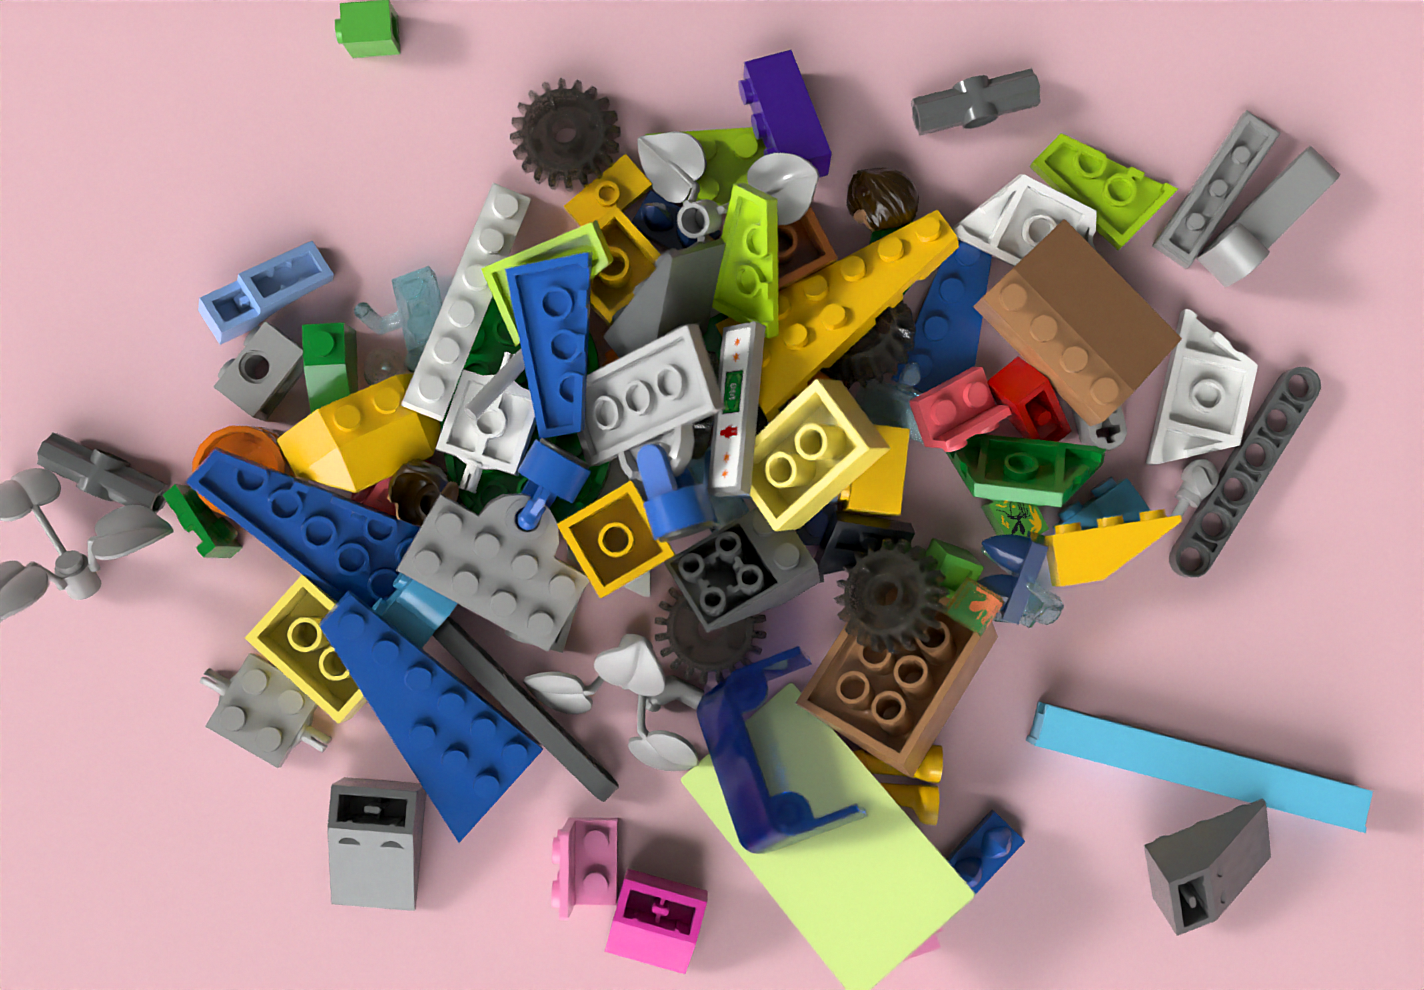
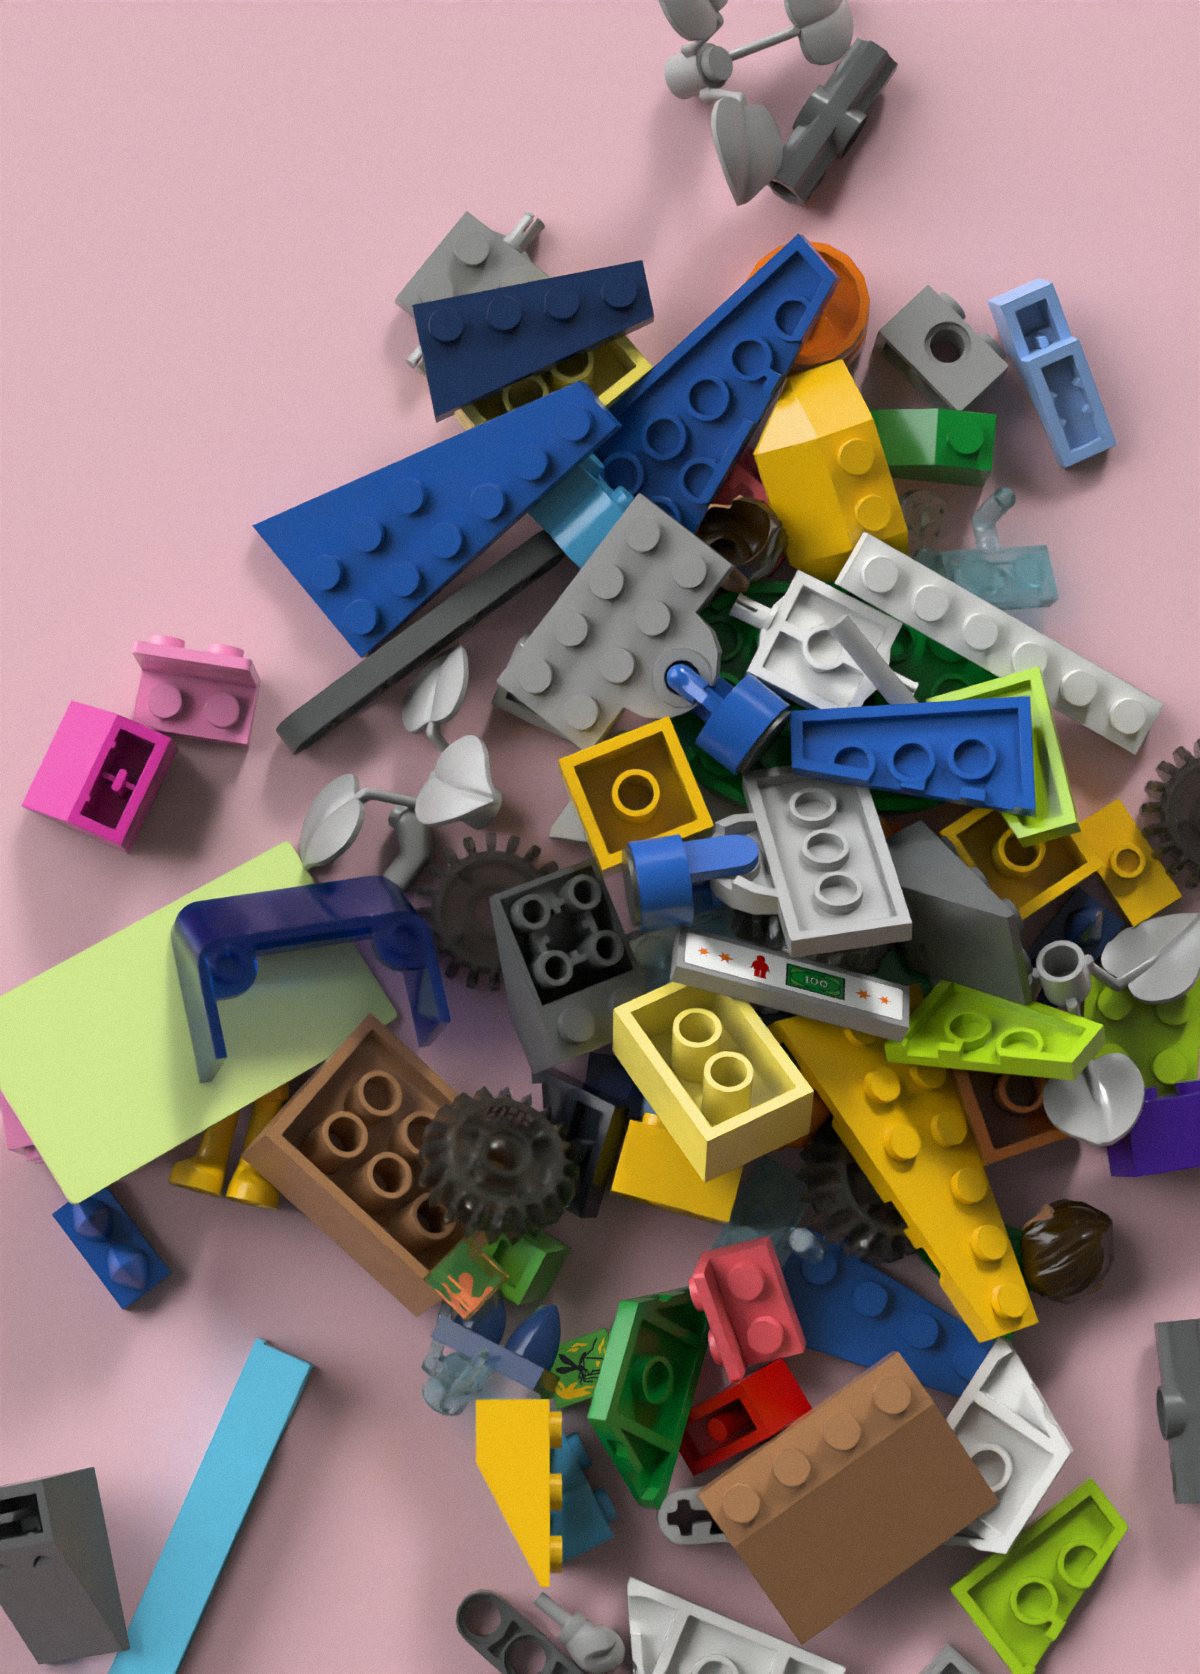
camera: 90 degrees right, 5 degrees down
(216, 534) = (753, 237): green wing -> none
(291, 682) = (508, 333): none -> dark blue wing
(375, 842) = (271, 414): slope -> none

